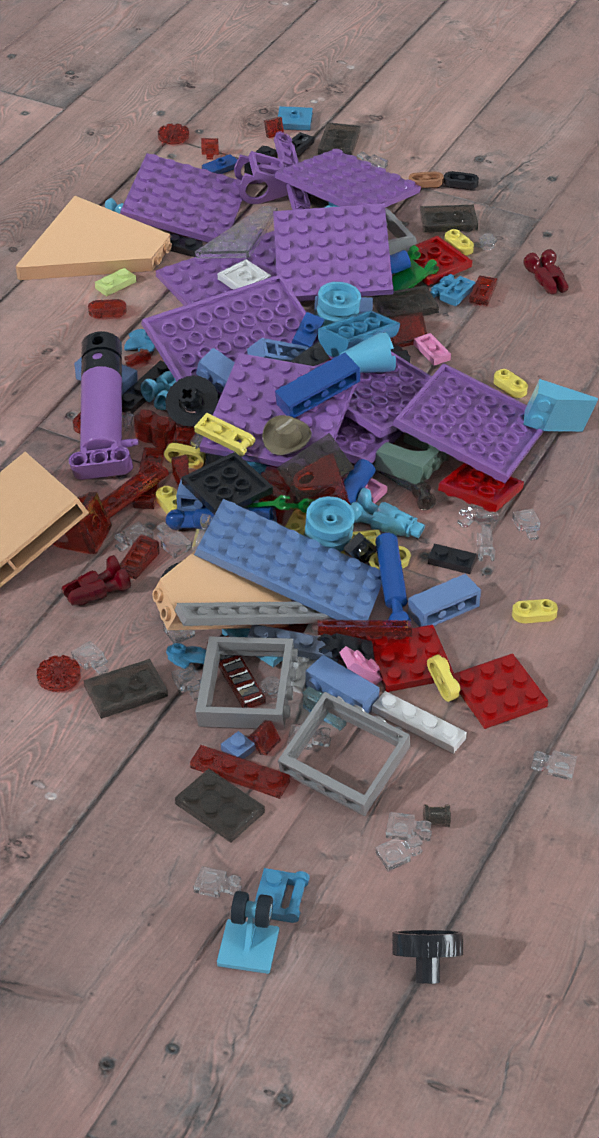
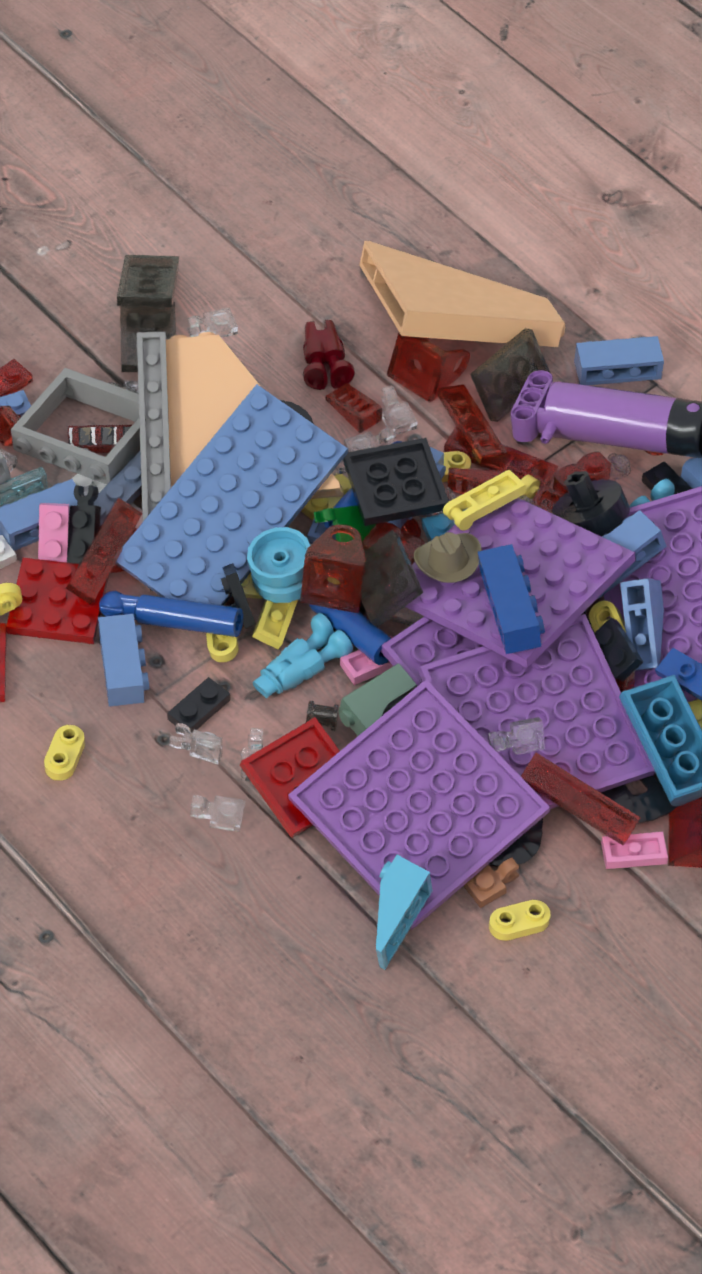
camera: 110 degrees right, 10 degrees up
(31, 438) = (619, 360): none -> medium blue brick
(58, 673) = (205, 292): clear red wheel -> none
(70, 699) = (148, 281): none -> clear smoke plate
(79, 477) = (505, 373): none -> clear smoke plate
(373, 354) = (584, 713): medium azure cone -> none
(401, 380) = (523, 737): none -> clear plate
(423, 361) = (580, 799): none -> clear red plate

